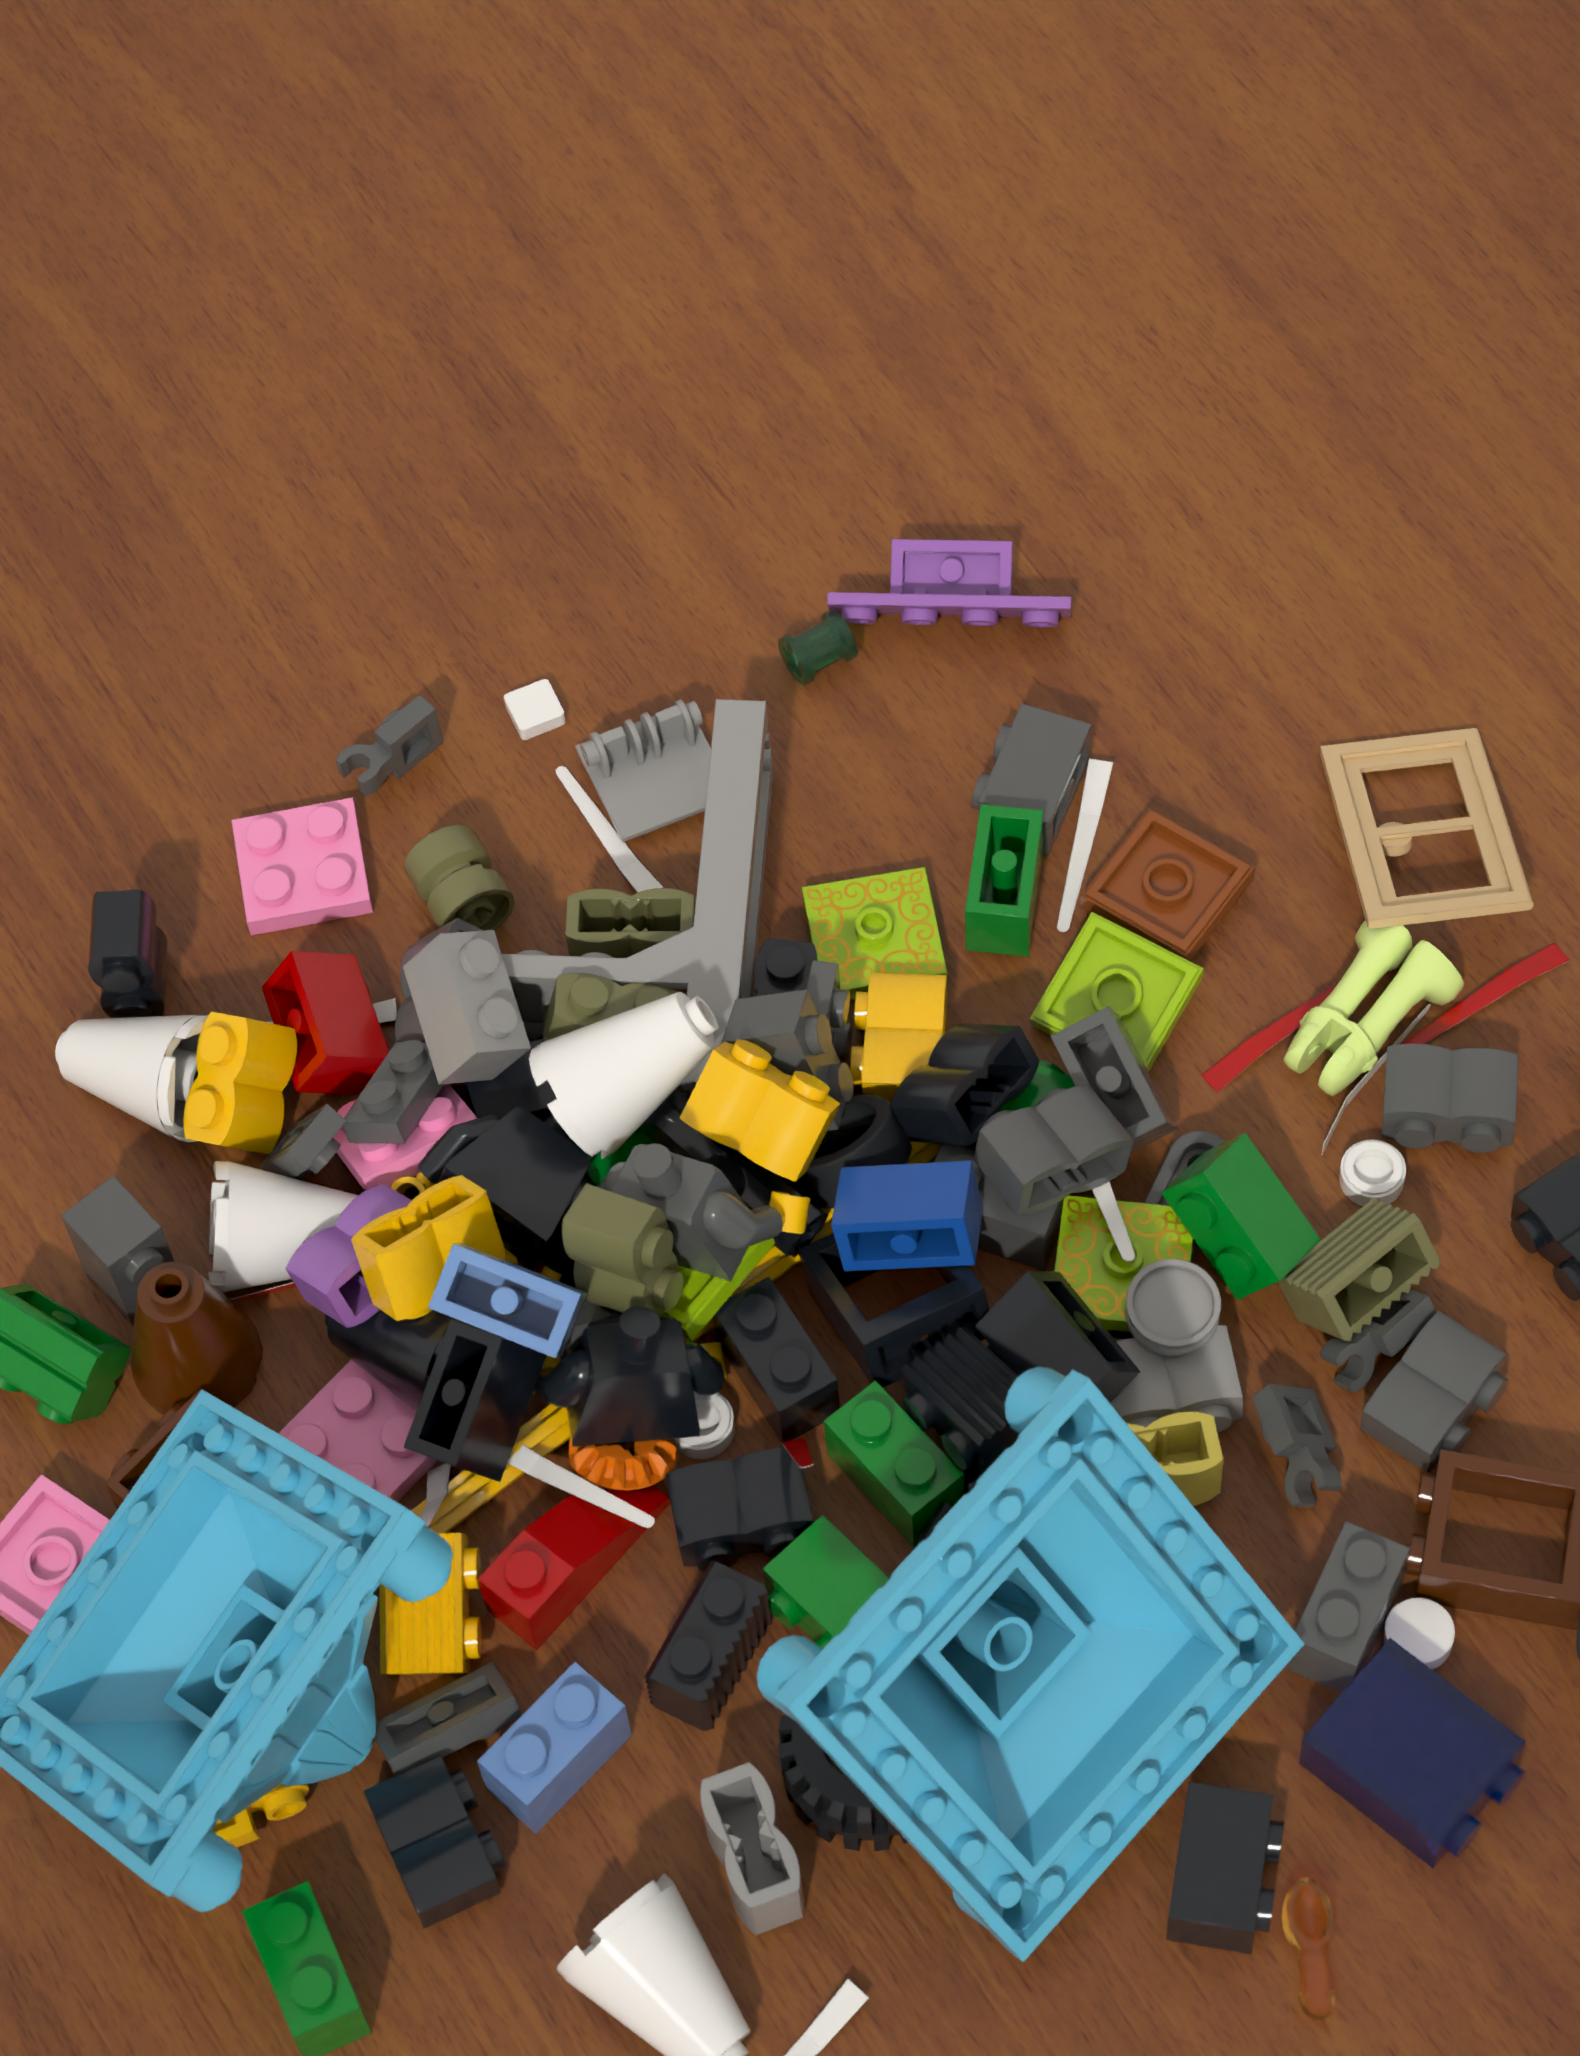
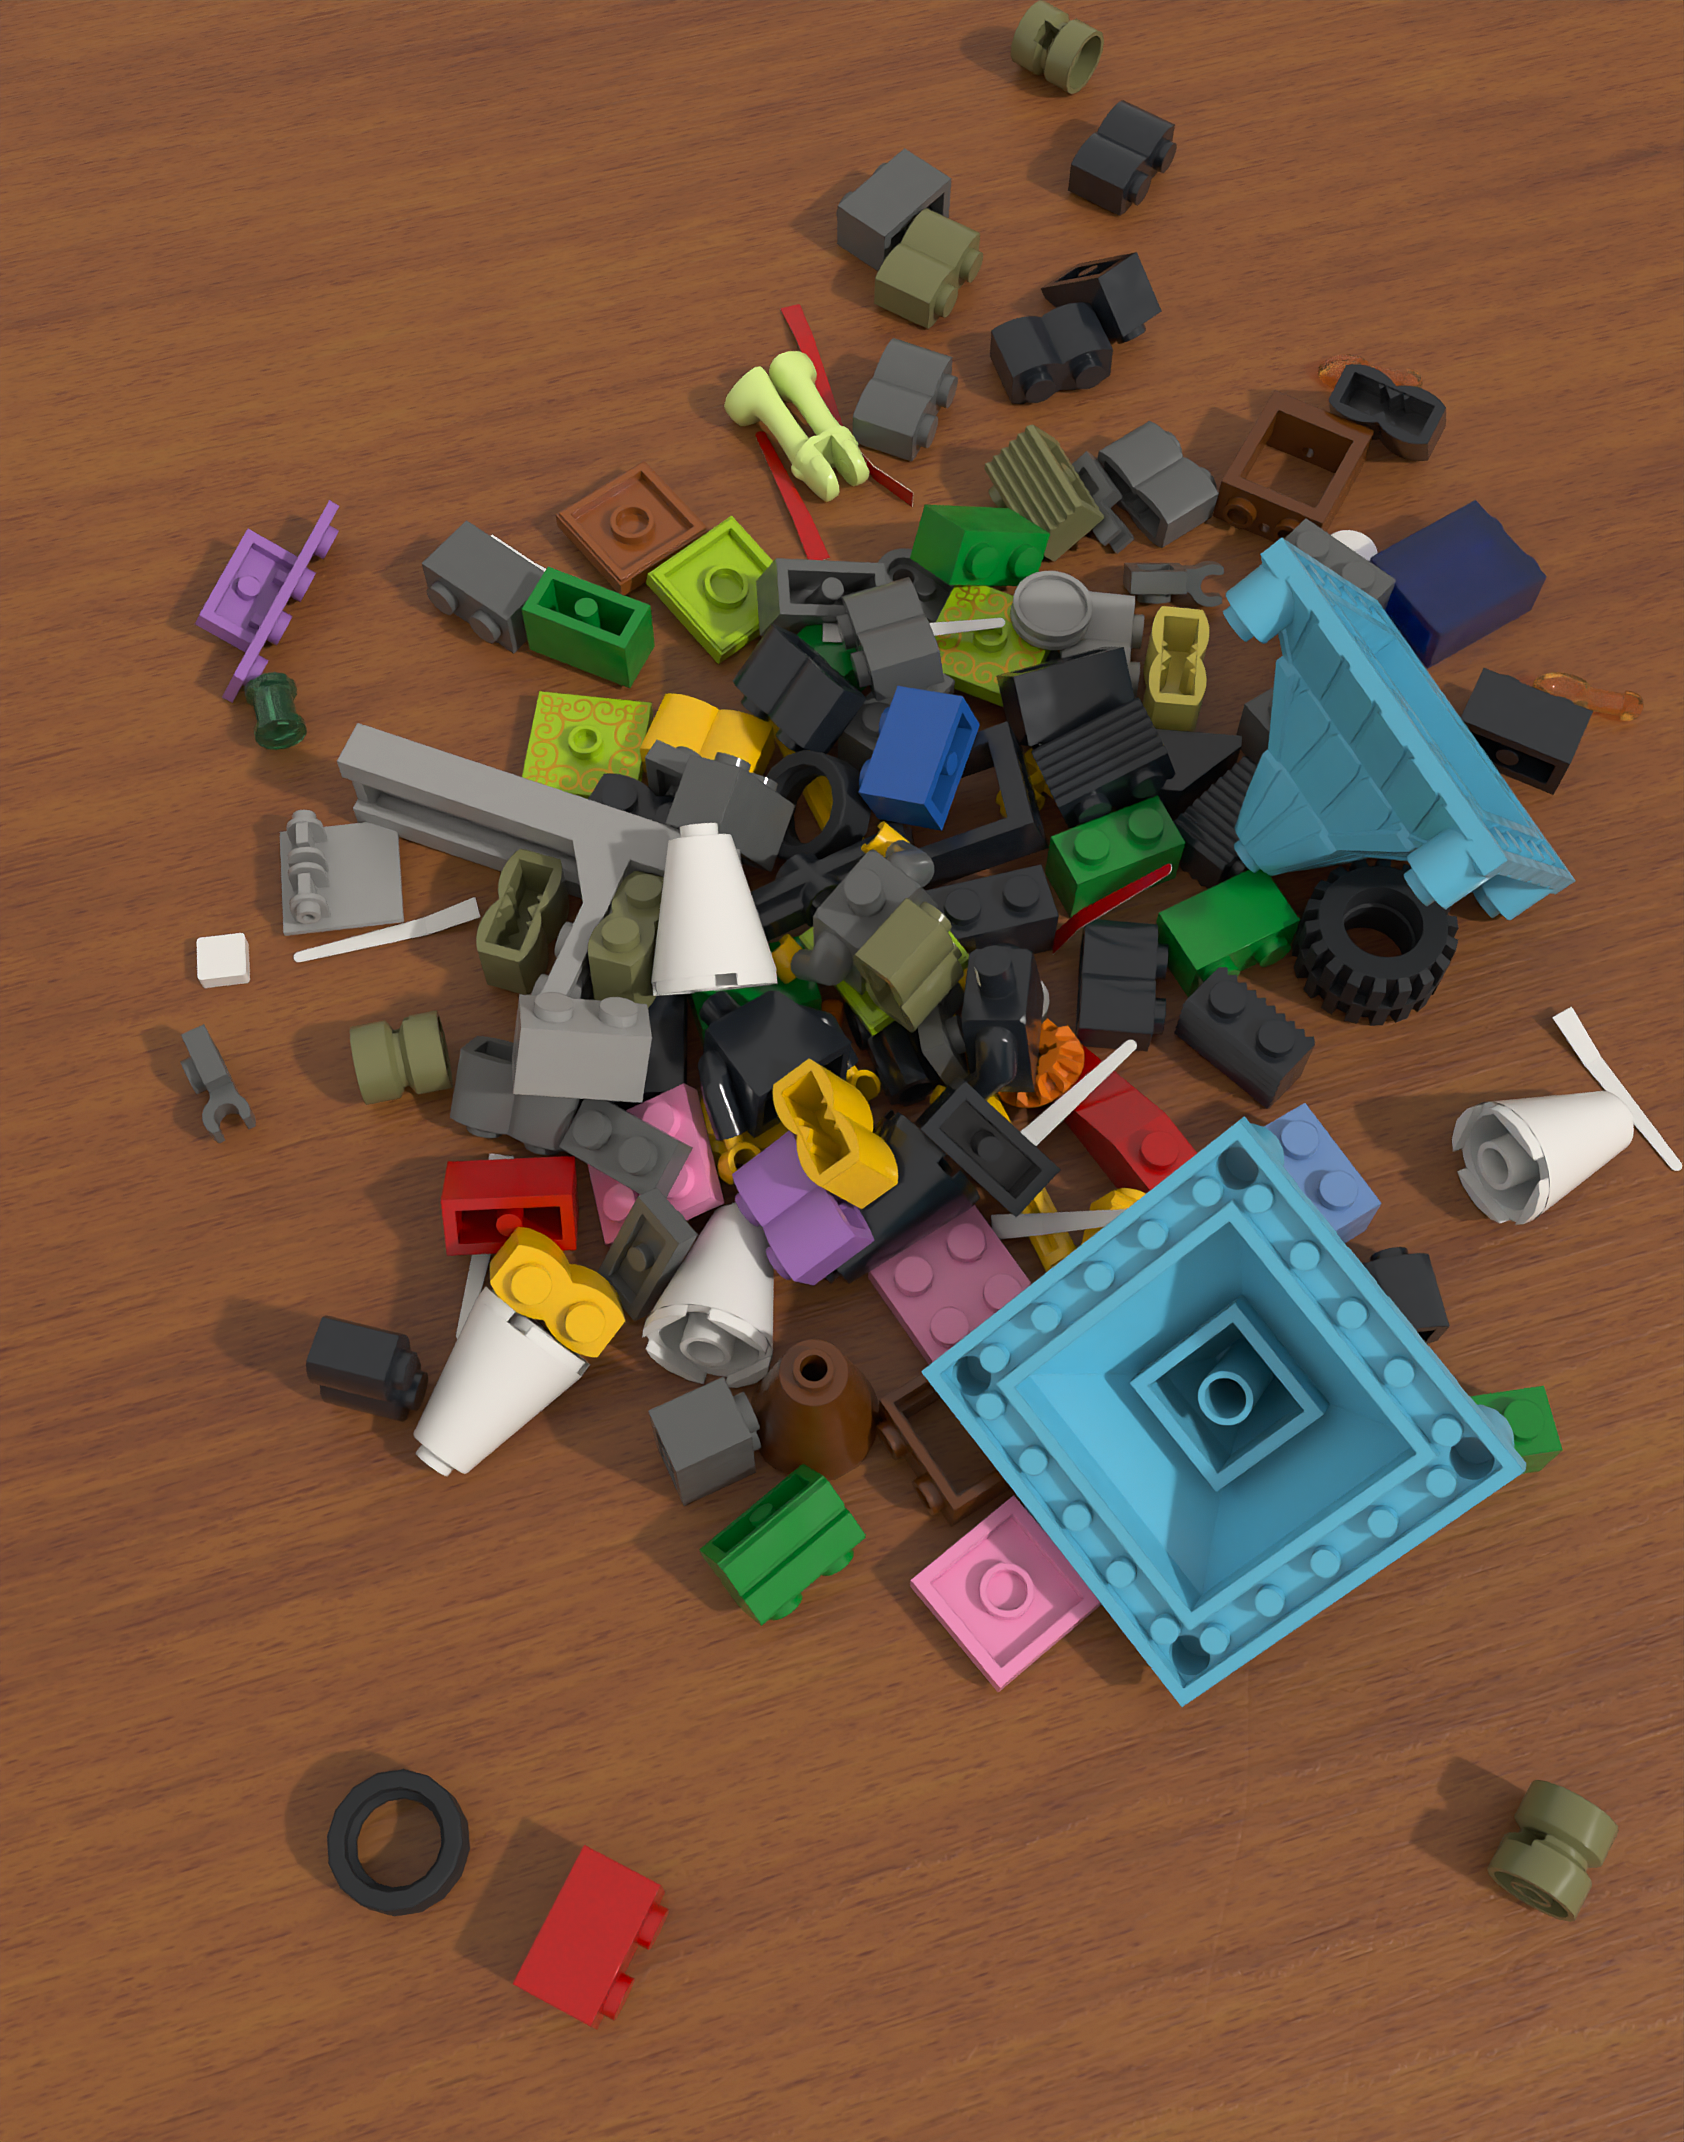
camera: 80 degrees left, 5 degrees up
(301, 866) = (307, 1203): bright pink plate -> none
(507, 1300) = (927, 1068): medium blue brick -> none
(756, 1855) = (1449, 1046): light grey brick -> none
(760, 1109) = (791, 826): yellow brick -> none
(1369, 845) = (656, 369): tan door -> none
(1372, 1171) = (944, 474): white tile -> none

